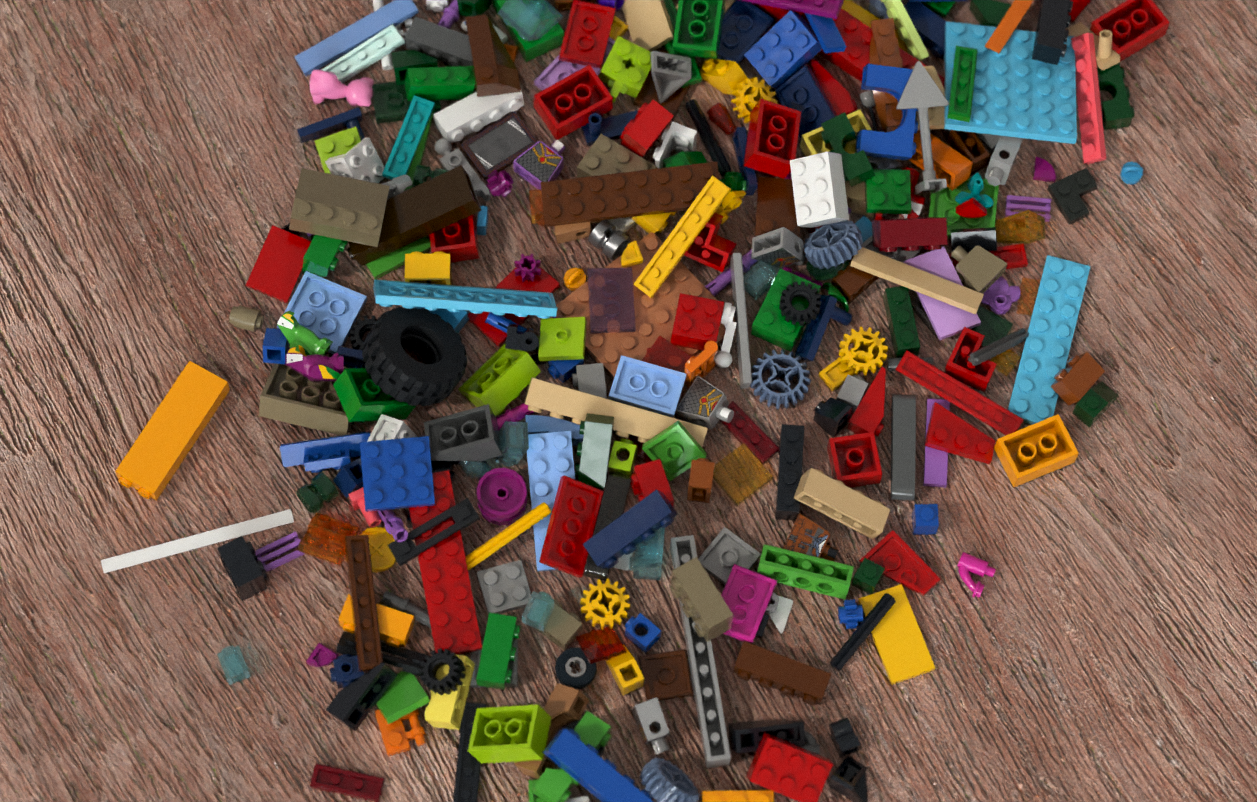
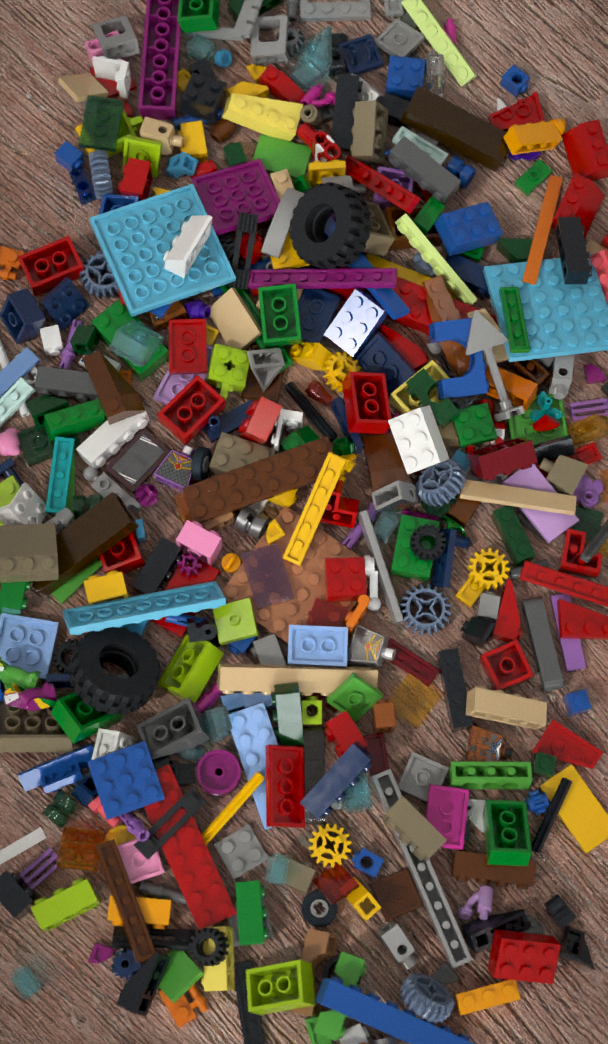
camera: 15 degrees left, 5 degrees up
(297, 592) = (65, 904): none -> lime brick
(387, 572) = (136, 865): none -> bright pink tile
(464, 489) = (185, 774): none -> black tile
(492, 263) = (158, 567): none -> black brick
(545, 245) = (200, 542): none -> bright pink brick
(568, 161) = (200, 463): none -> black bush
(685, 520) = (377, 748): none -> dark red tile
(698, 773) = (445, 975): none -> dark grey tile
(761, 706) = (484, 898): none -> lavender plant
(806, 634) = (506, 833): none -> green brick

